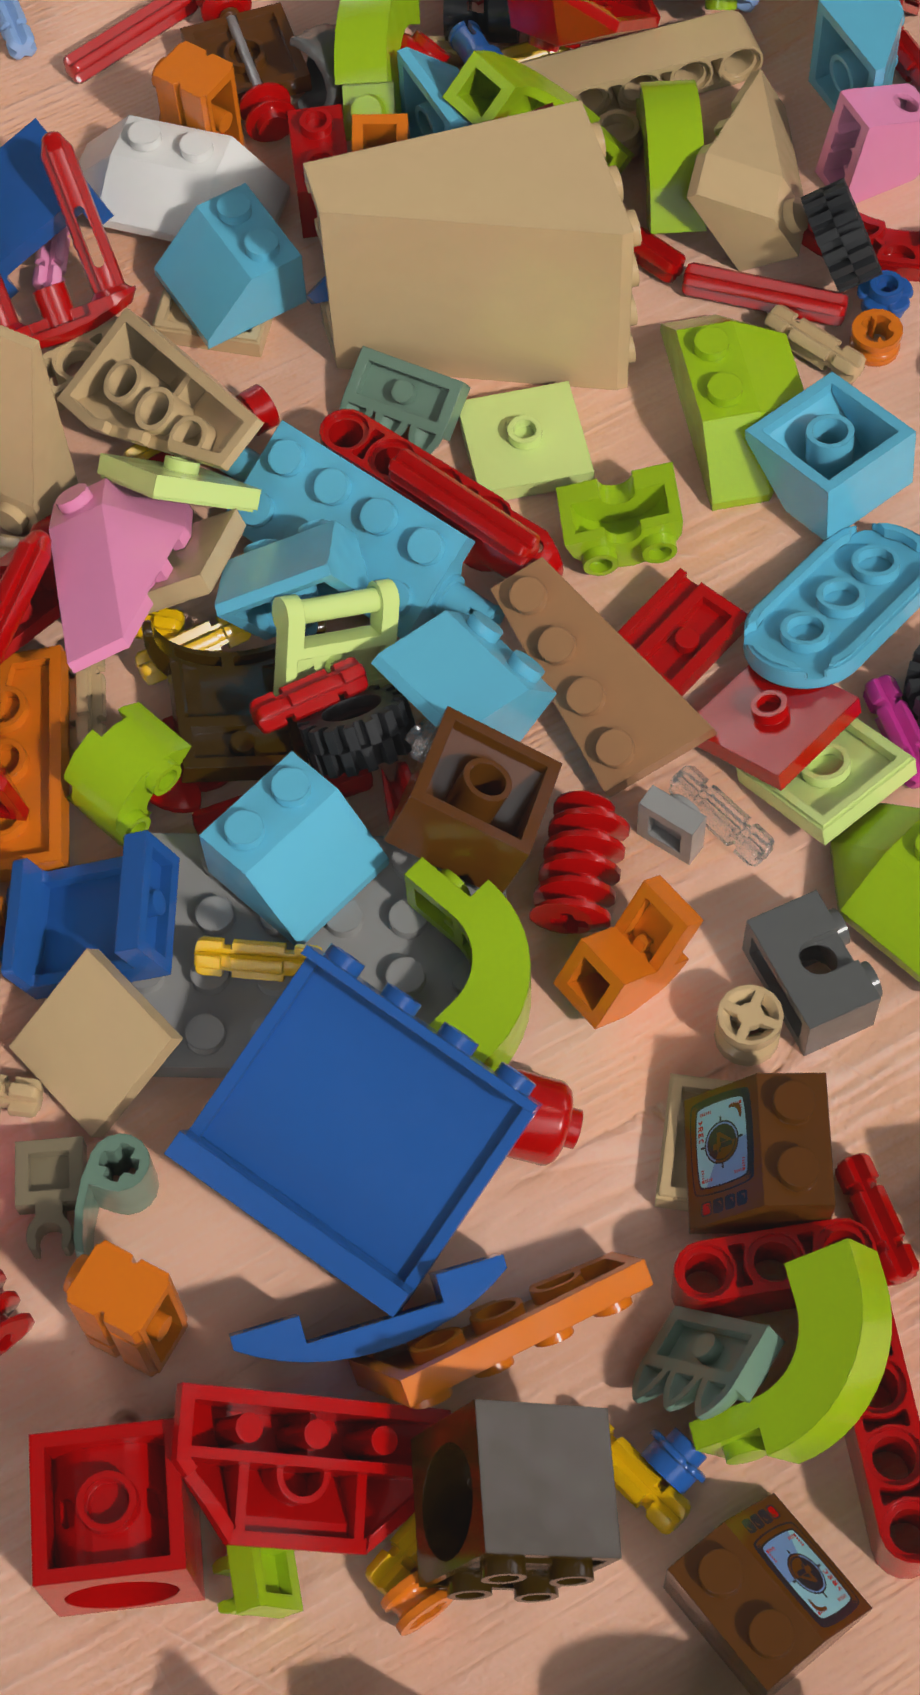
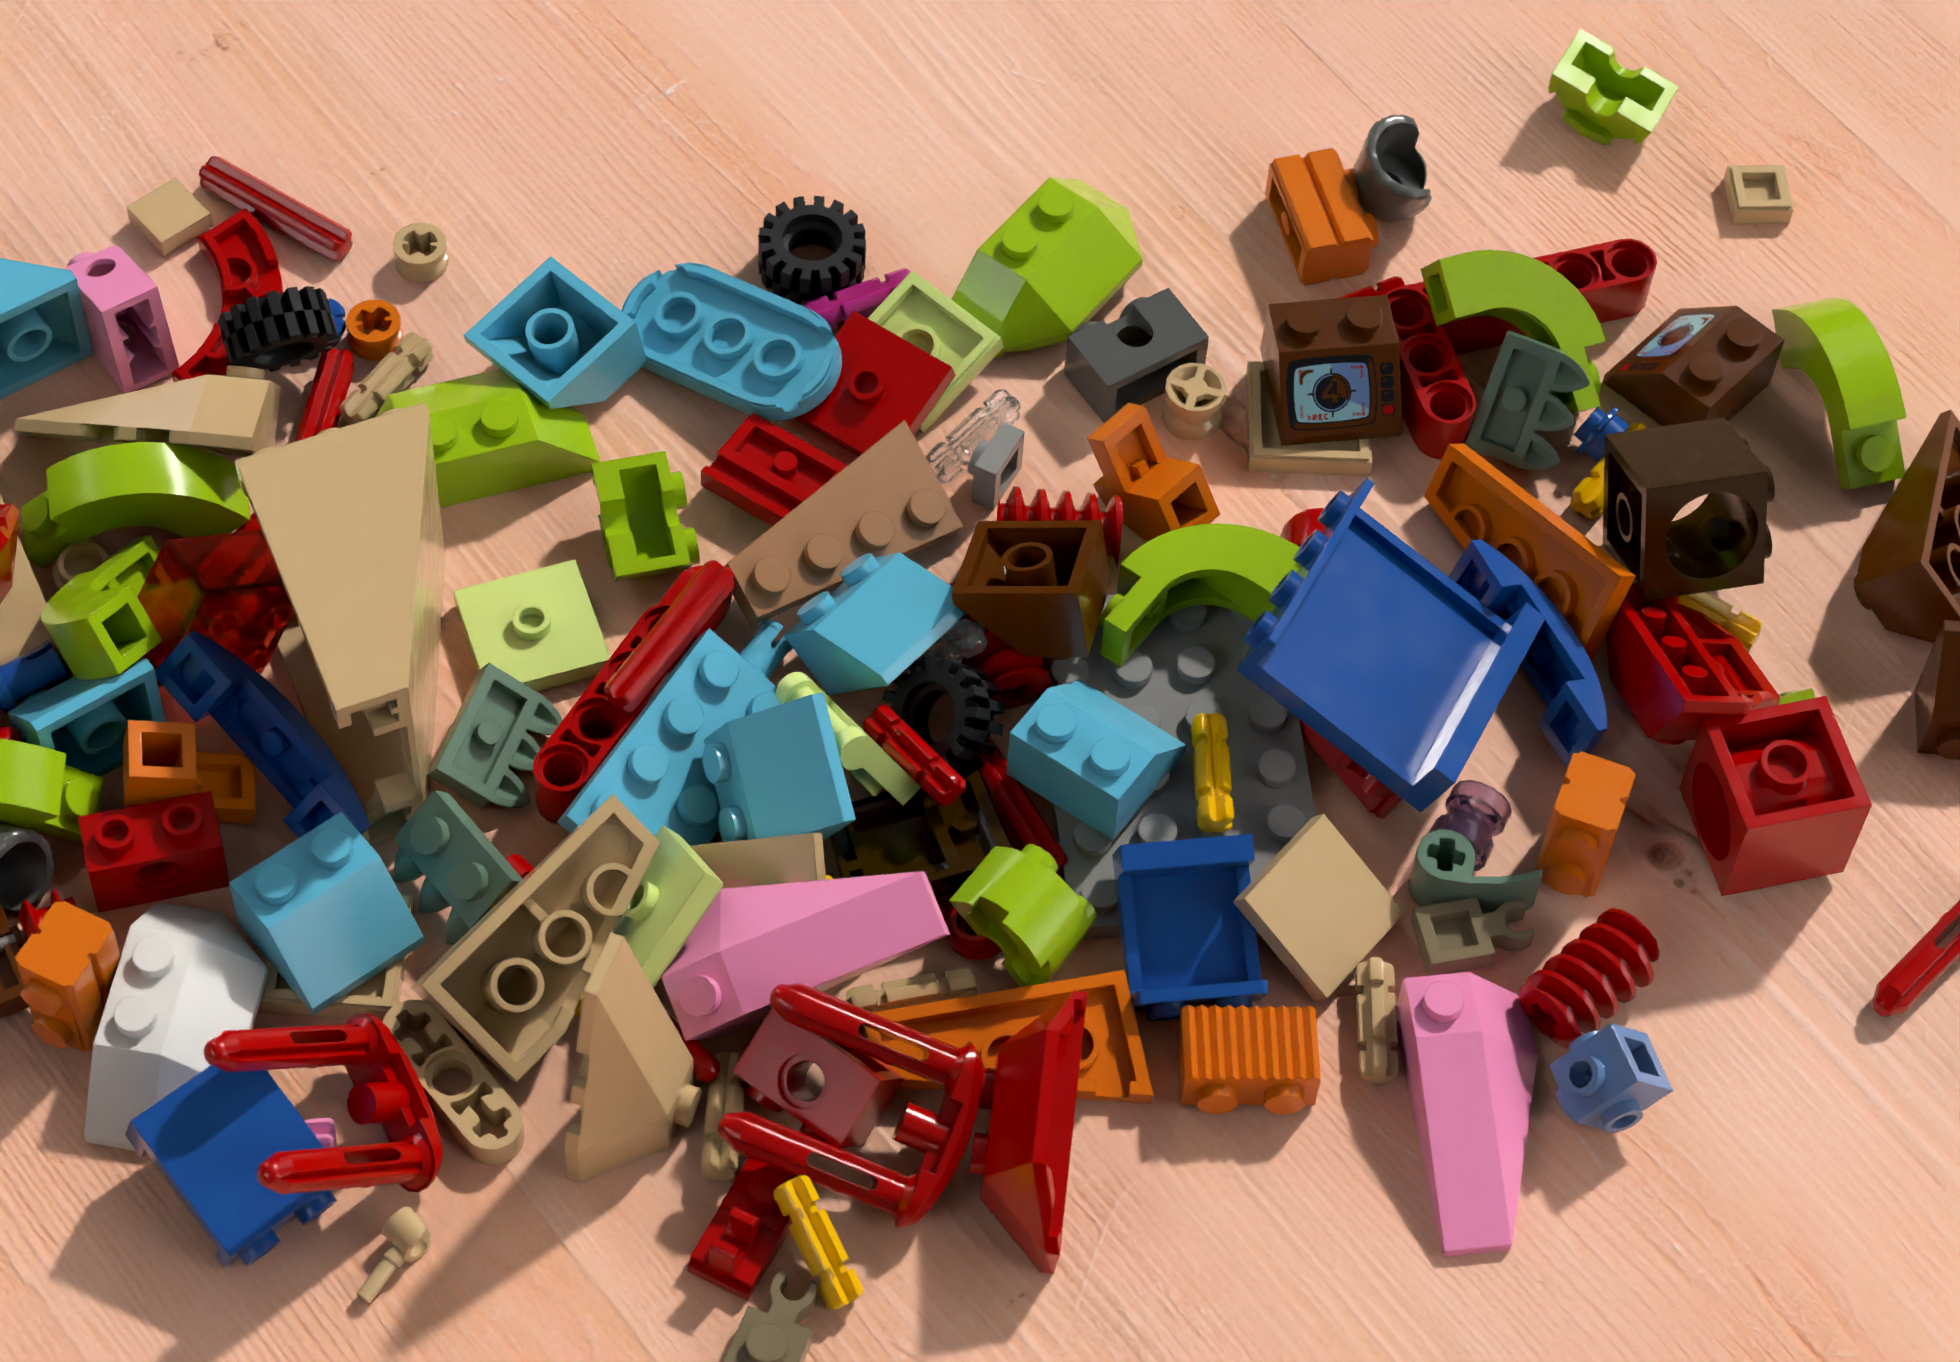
camera: 105 degrees left, 5 degrees down
(170, 1210) = (1477, 814): none -> wheel
(290, 350) = (457, 862): none -> sand green plate
(414, 1604) = (1765, 601): orange bush -> none

